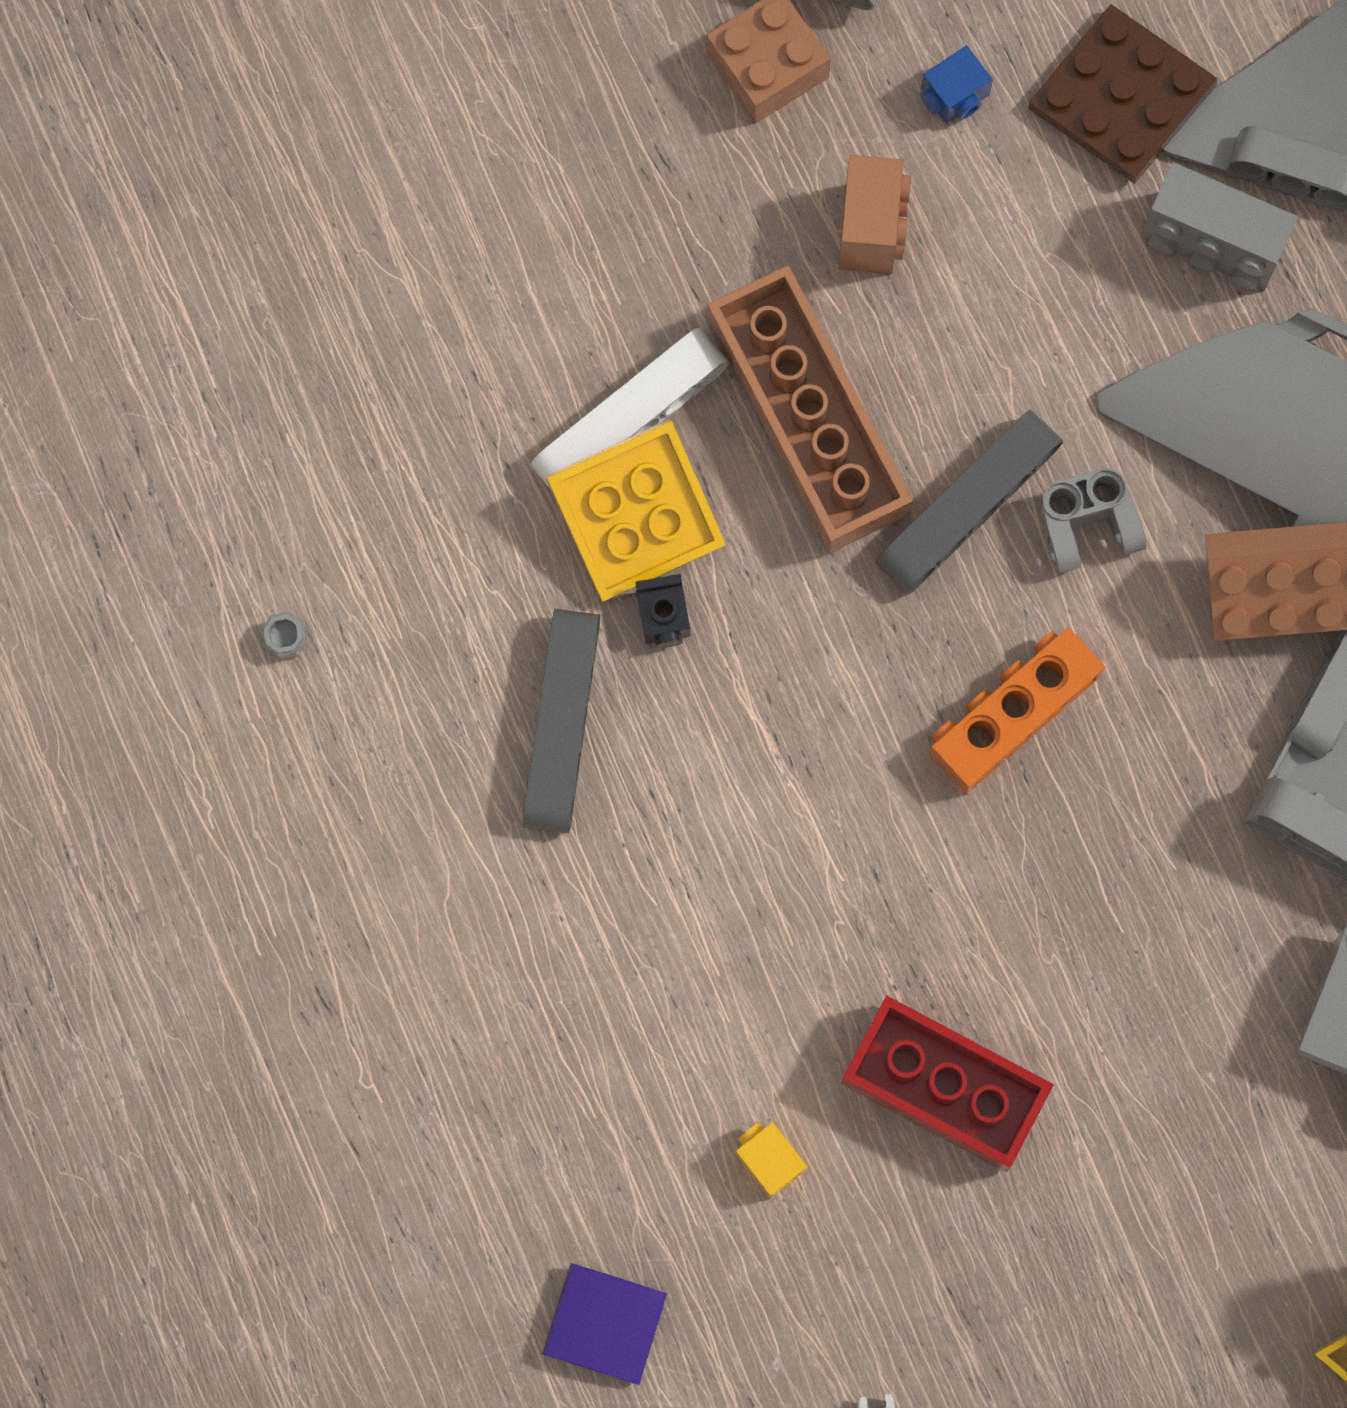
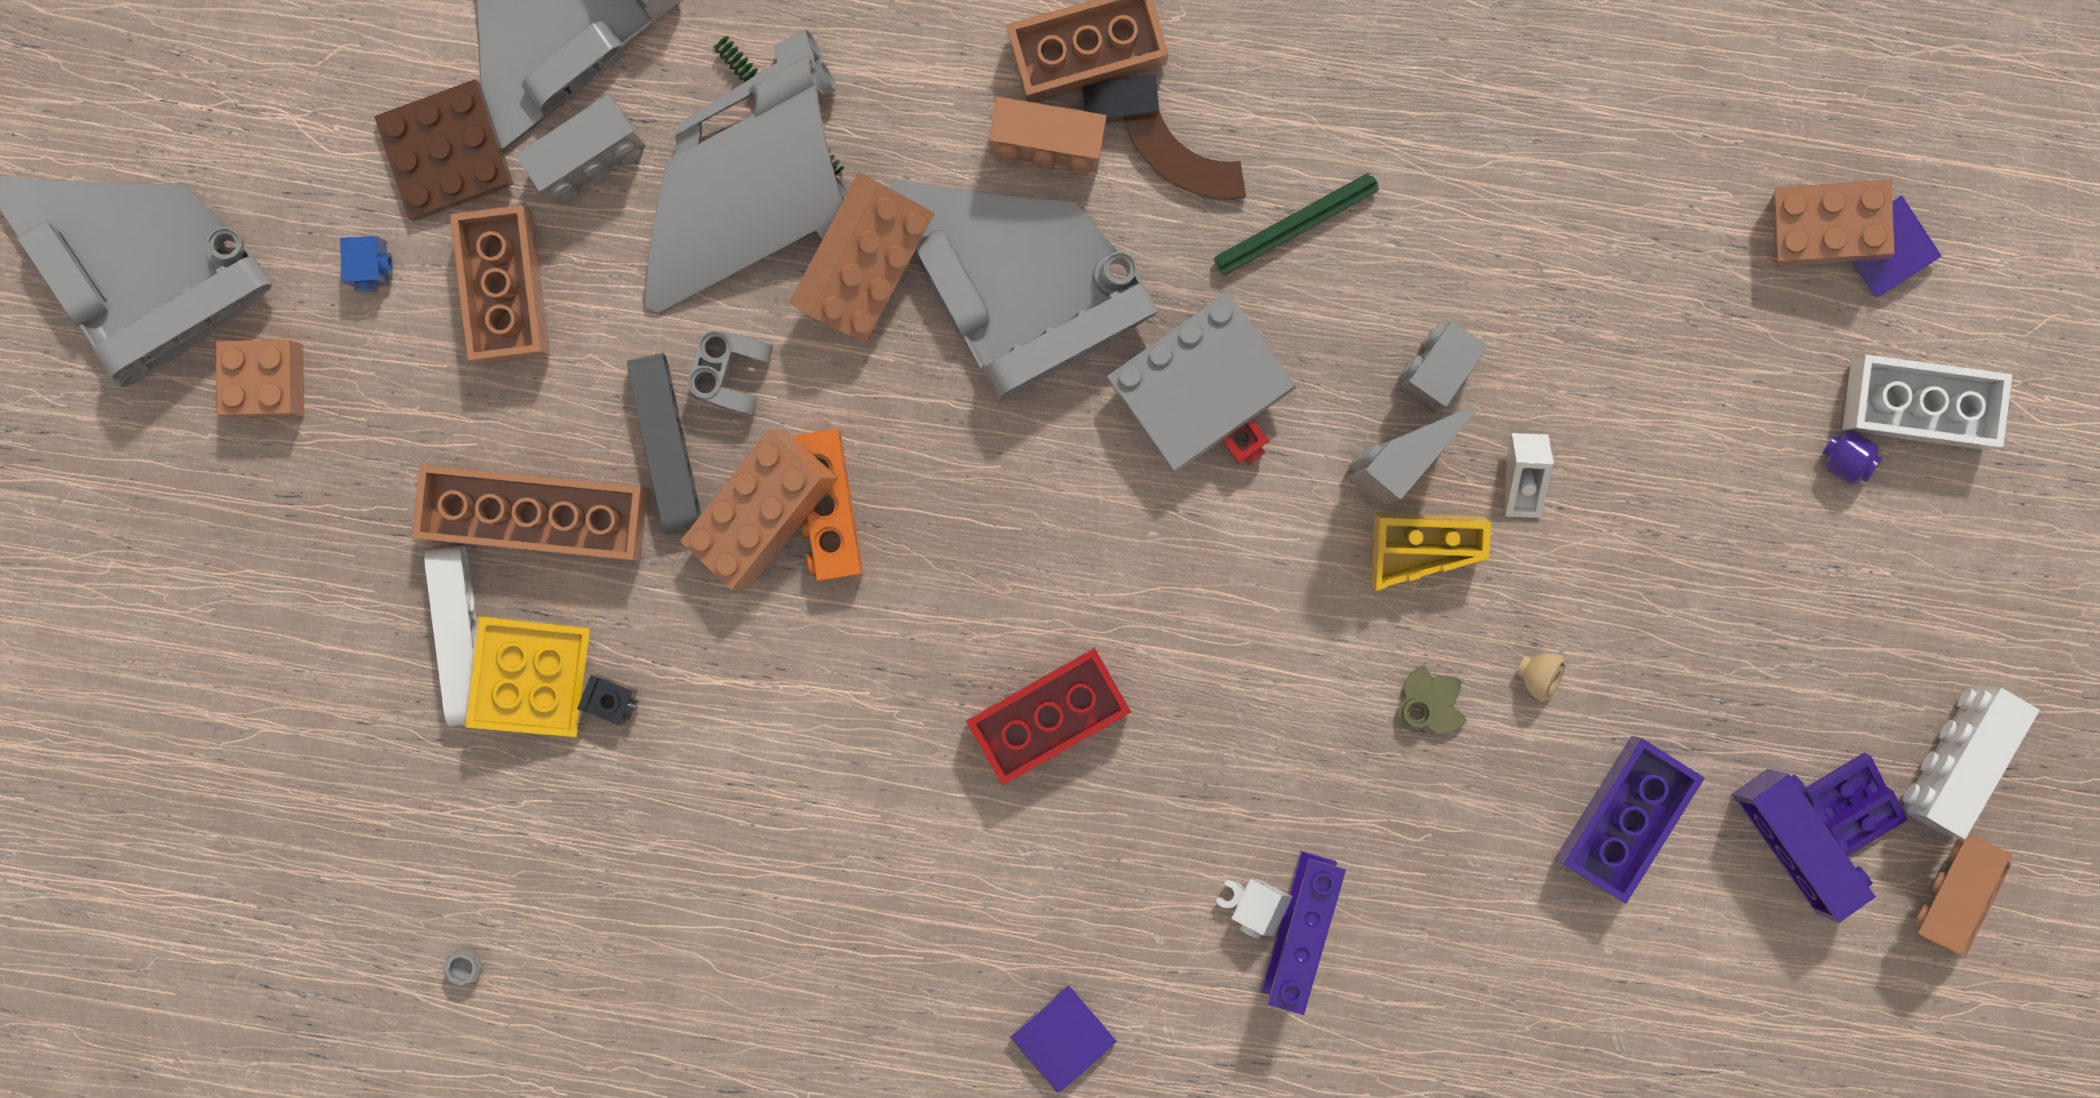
camera: 60 degrees left, 10 degrees up
(561, 721) = (641, 816): dark grey beam -> none
(769, 1158) = (1023, 862): yellow brick -> none
(872, 208) = (419, 383): nougat brick -> none
(968, 638) = (758, 509): none -> nougat brick
(1024, 232) = (499, 284): none -> nougat brick

